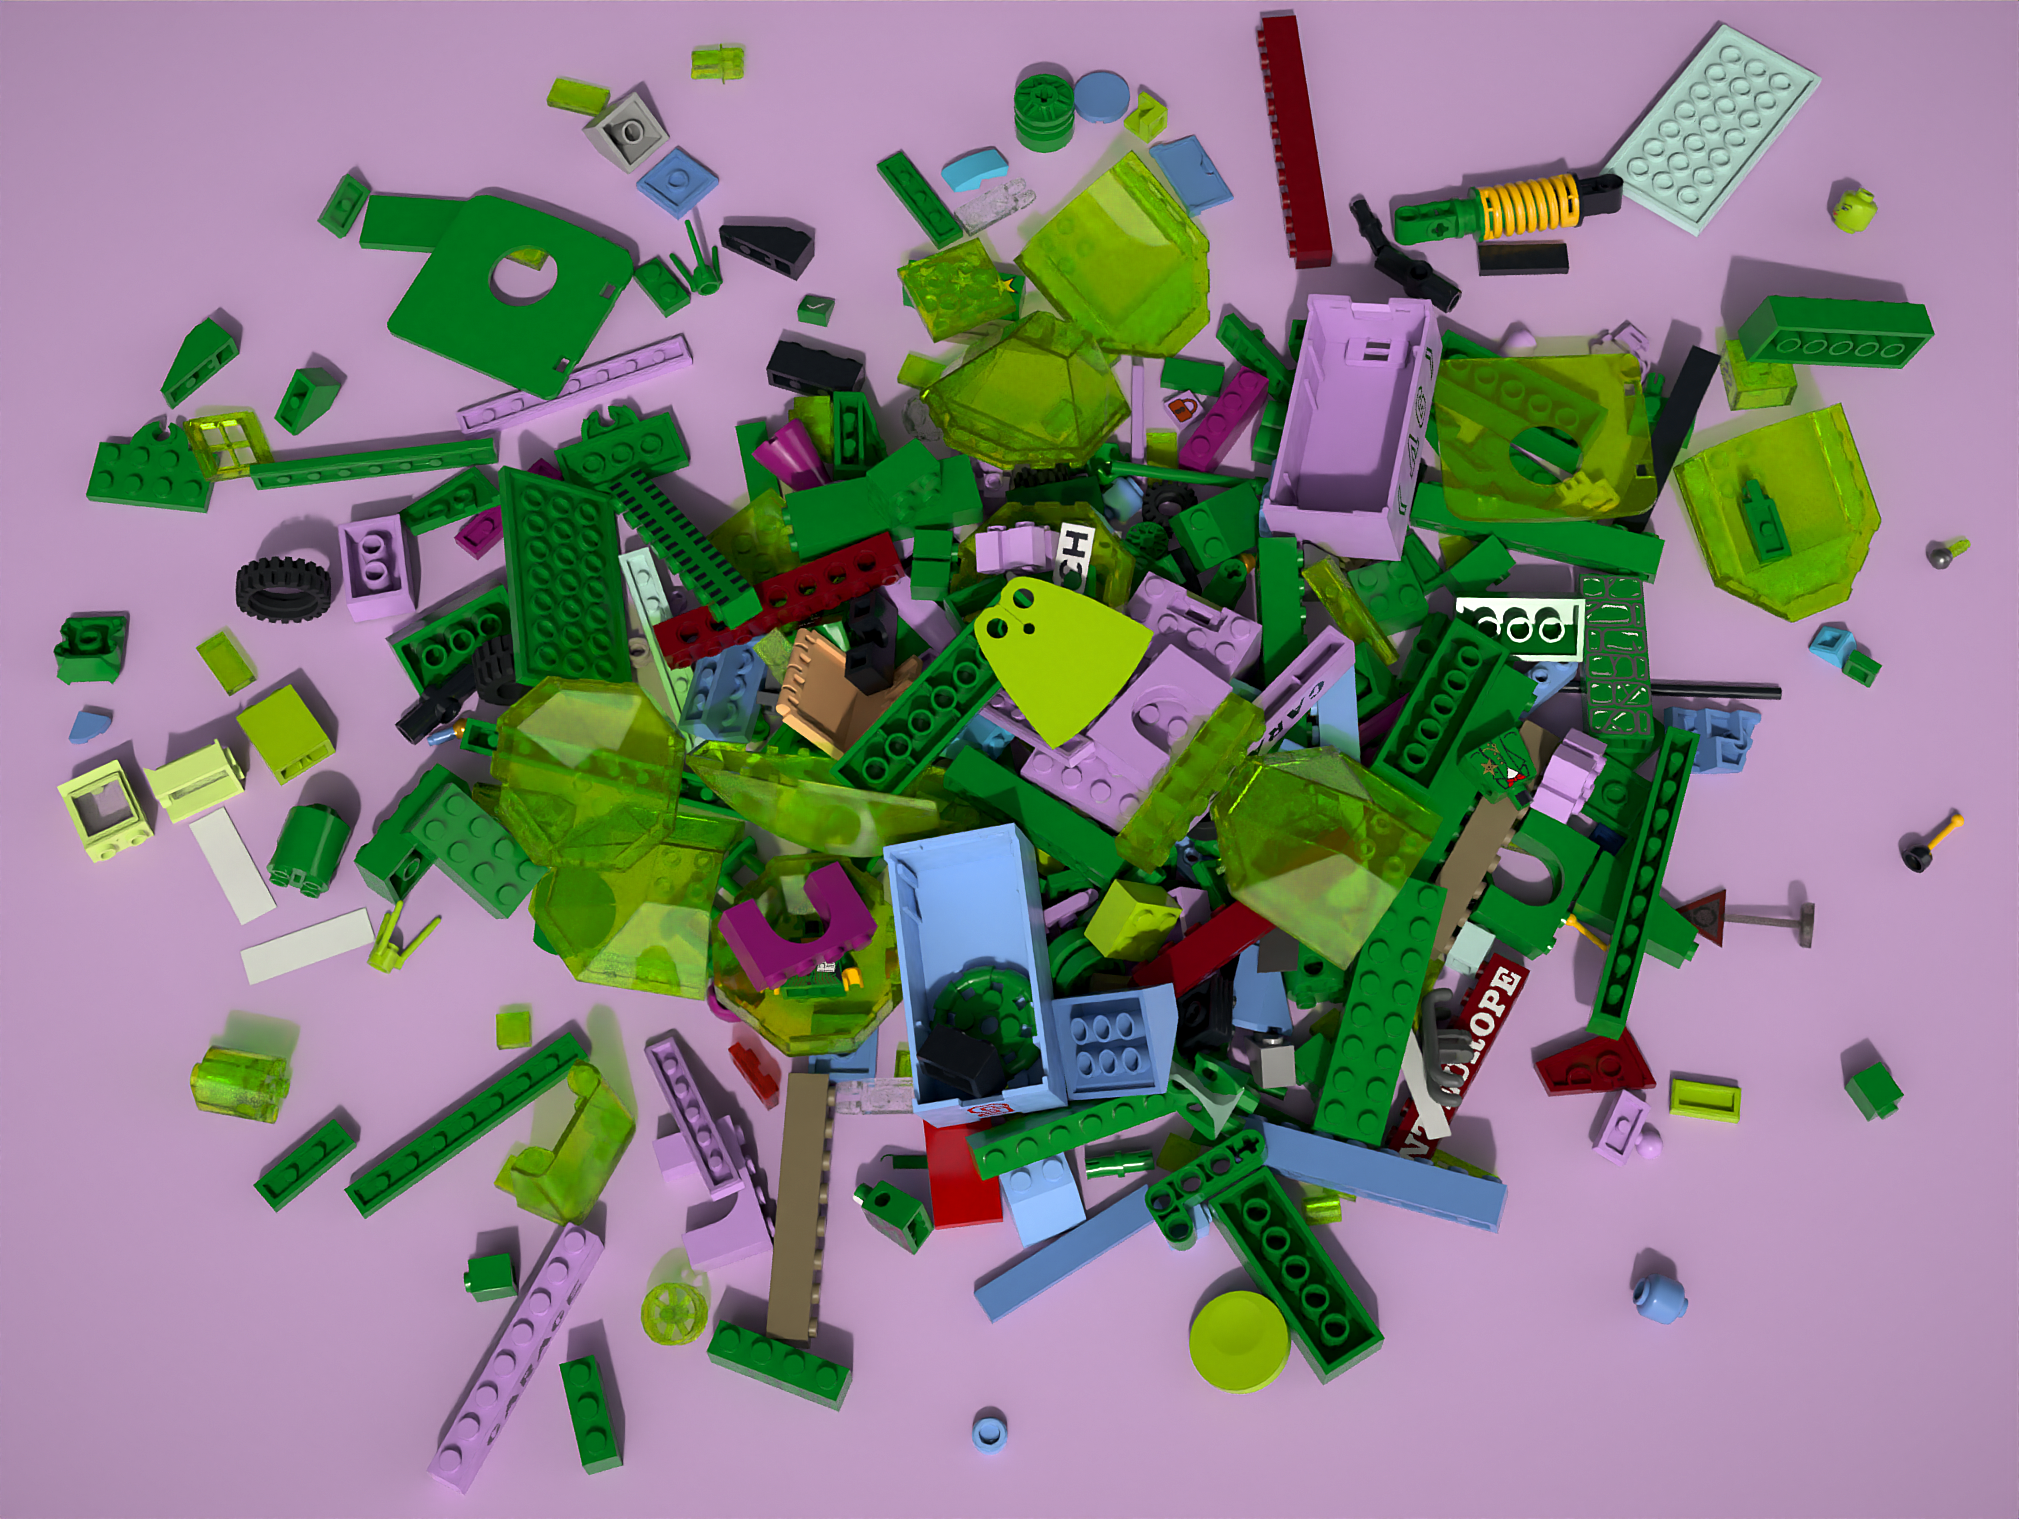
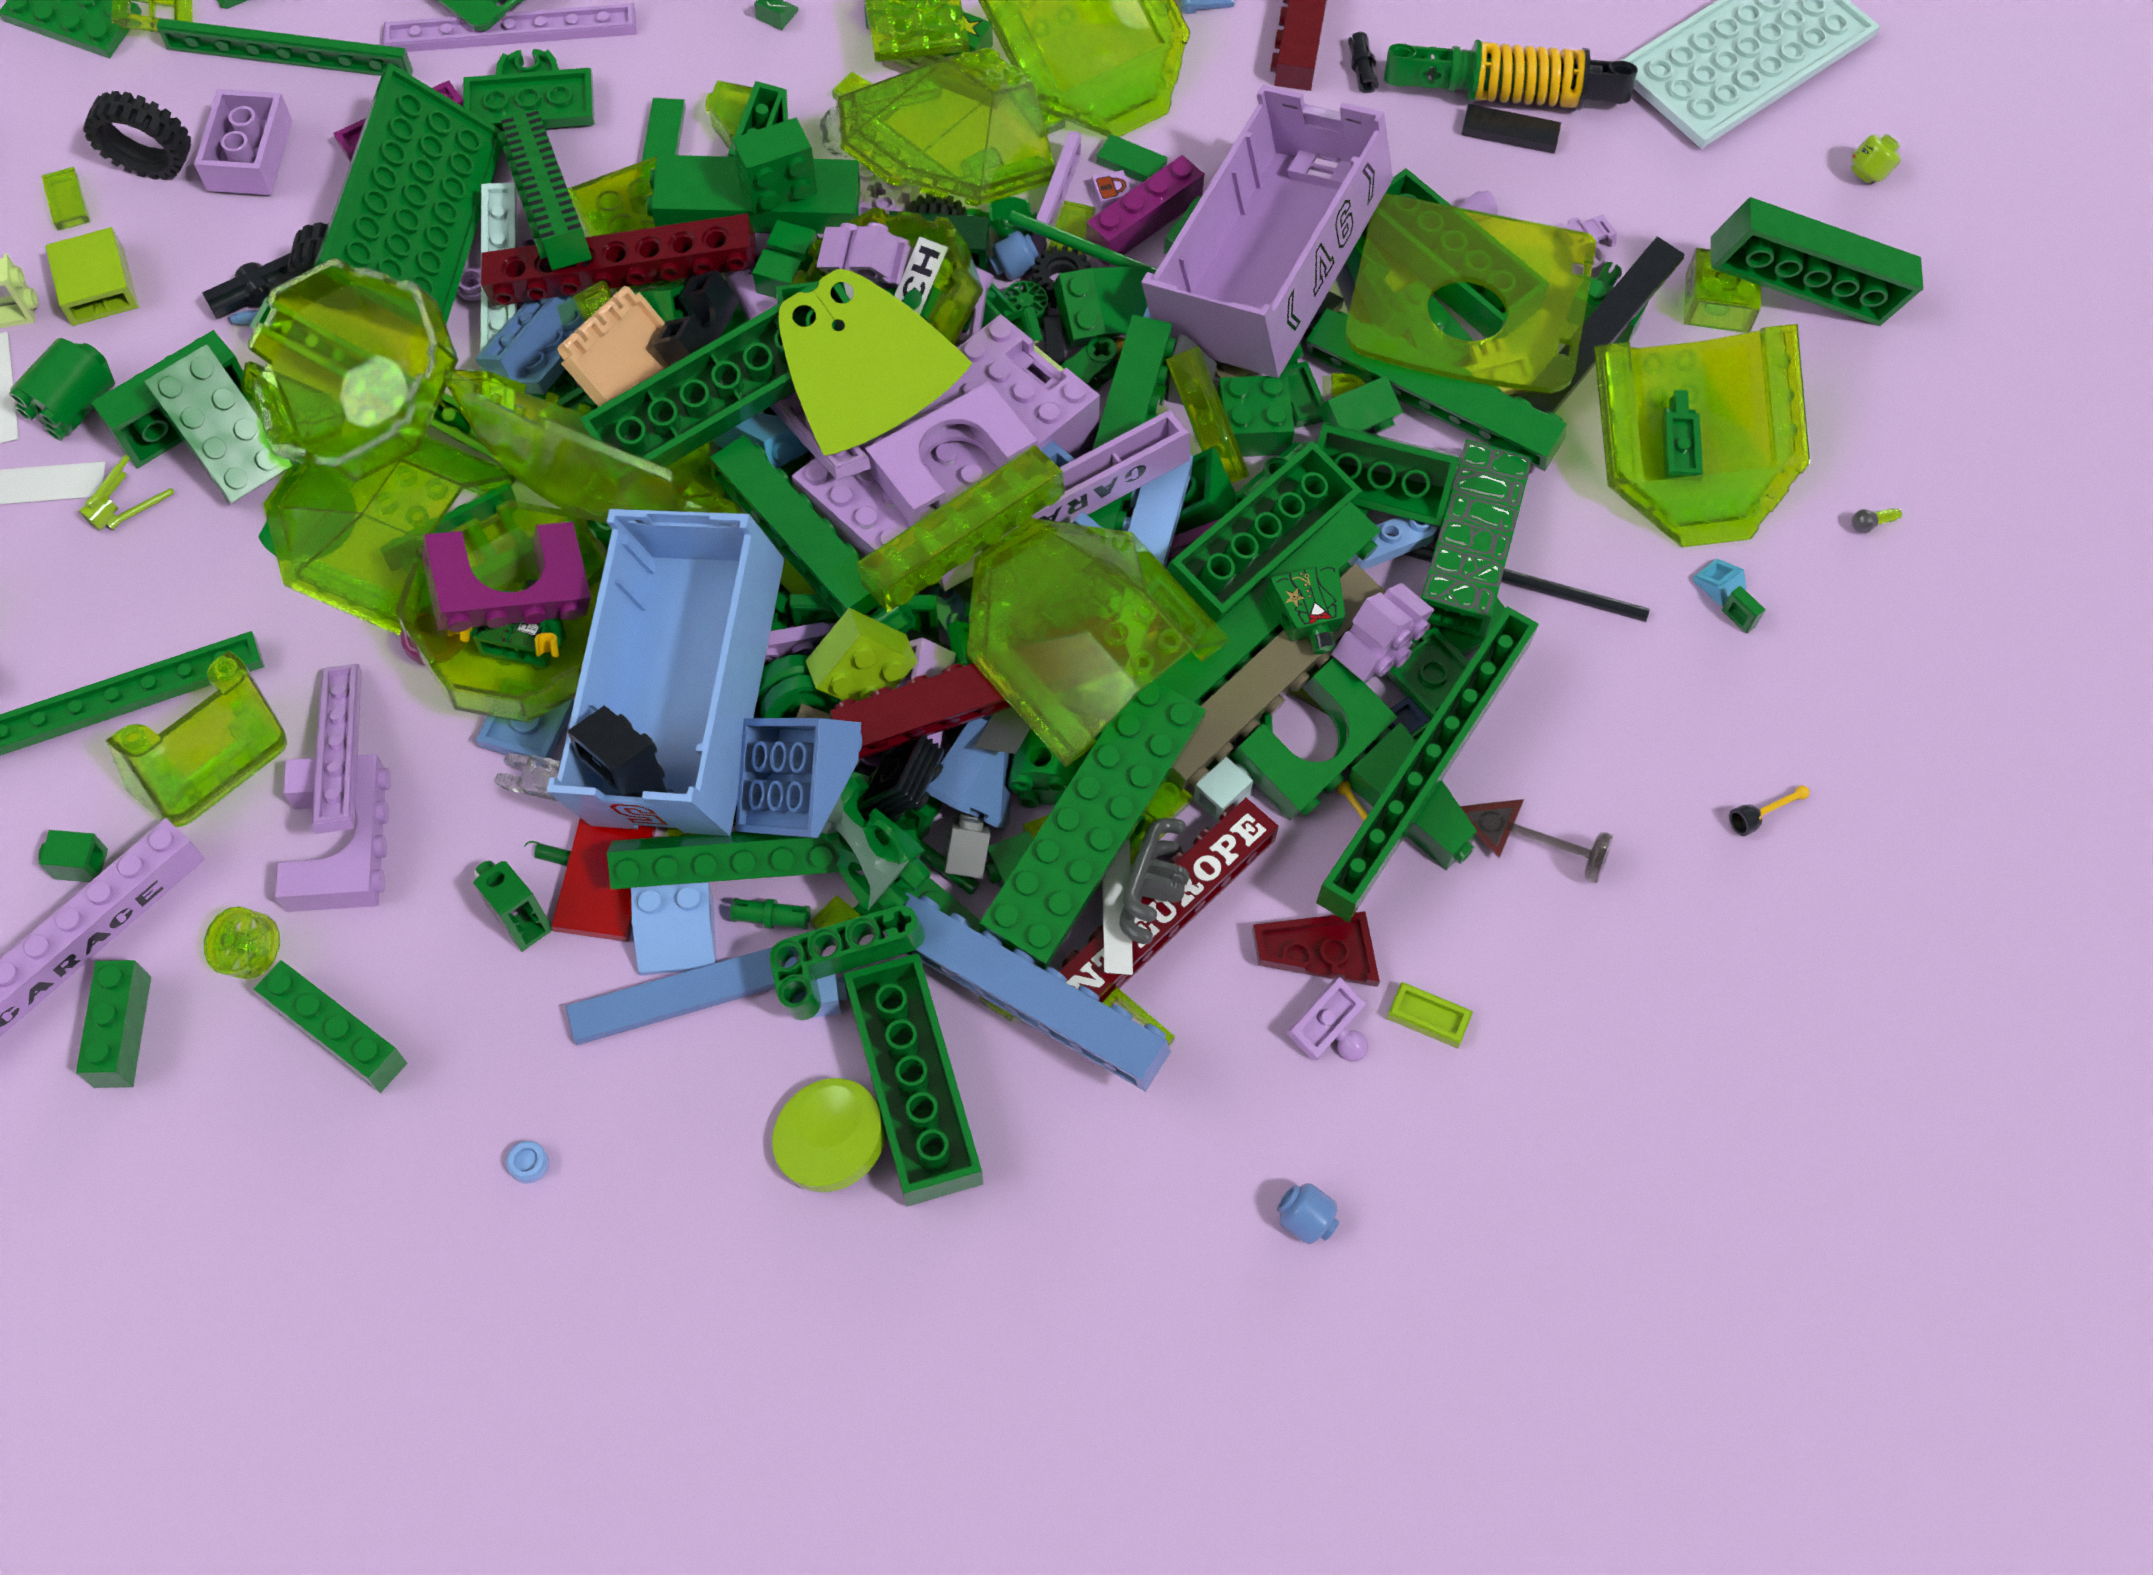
camera: 10 degrees right, 0 degrees up
(448, 636) = (268, 227): green slope -> none
(451, 502) = (335, 102): green wing -> none
(513, 1030) = (200, 617): clear neon green plate -> none
(747, 1065) = (427, 736): clear red plate -> none
(793, 457) = (690, 126): magenta cone -> none
(799, 1210) = (414, 874): dark tan brick -> none
(813, 371) = (743, 61): black brick -> none
(989, 1004) = (662, 713): green plate -> none
(1253, 354) = (1196, 142): green hinge -> none
(1321, 1209) = (968, 1018): clear neon green piece -> none
(1407, 271) = (1399, 123): black piece -> none
(1722, 740) = (1562, 643): medium blue slope -> none
(1874, 1092) = (1620, 1054): green brick -> none

